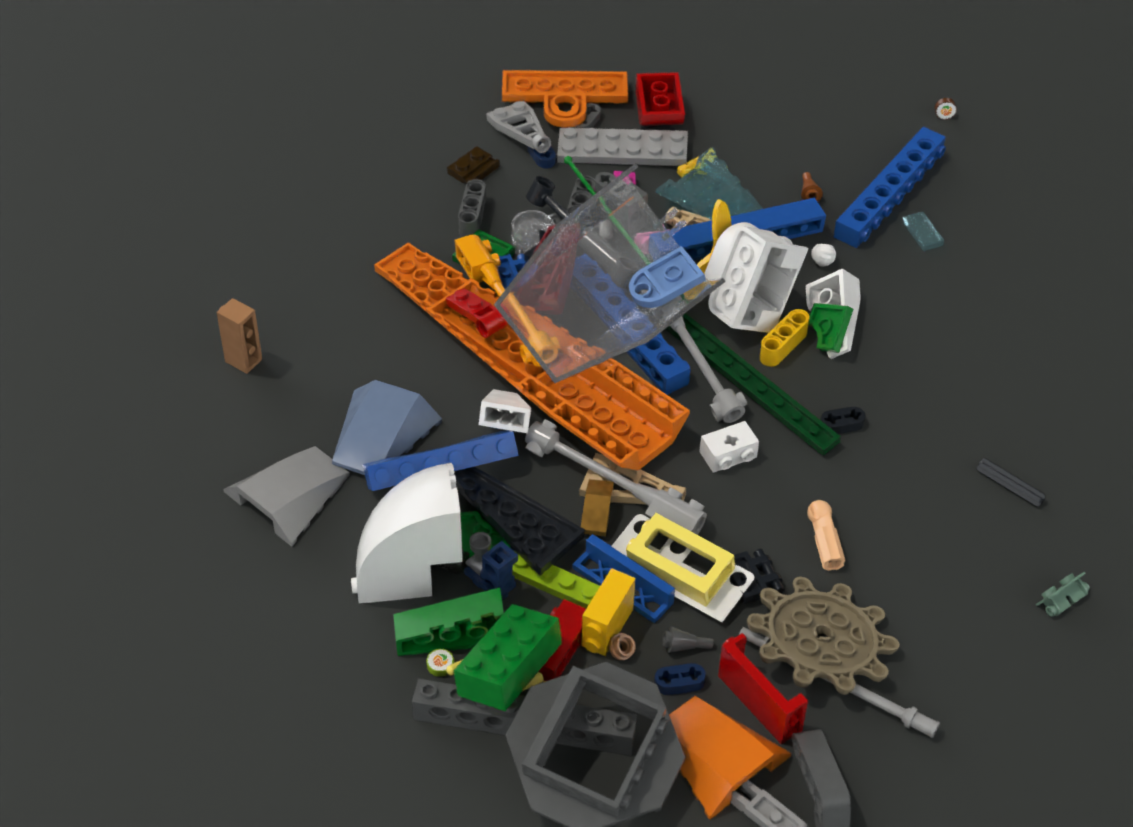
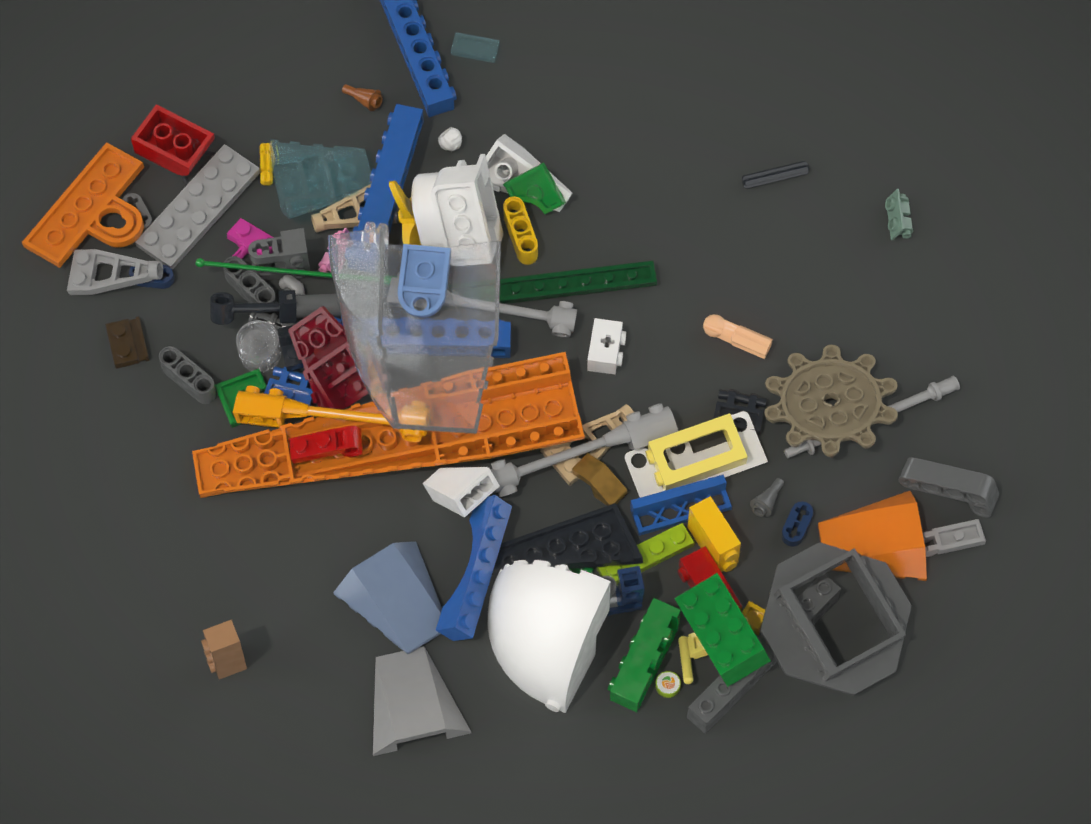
camera: 55 degrees left, 15 degrees up
(627, 643) = (747, 545): medium nougat plate -> none
(758, 694) = (852, 478): red panel -> none
(843, 419) = (628, 245): black beam -> none

